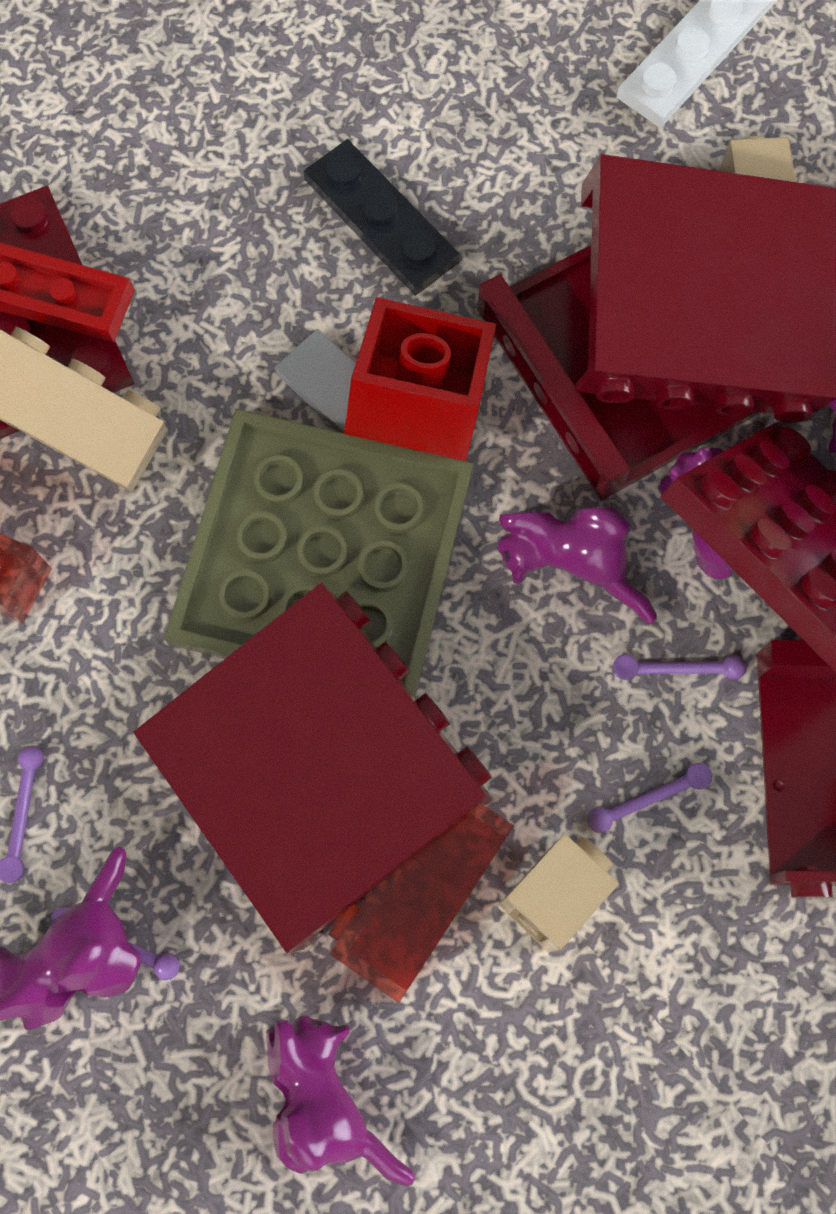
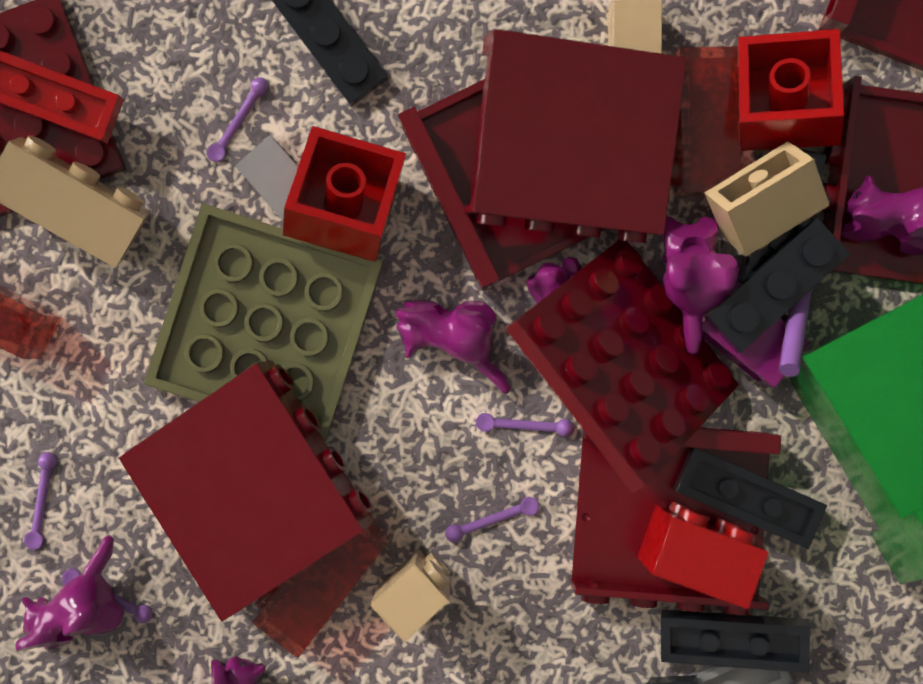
camera: 10 degrees right, 15 degrees up
(249, 355) = (216, 152): none -> medium lavender hinge

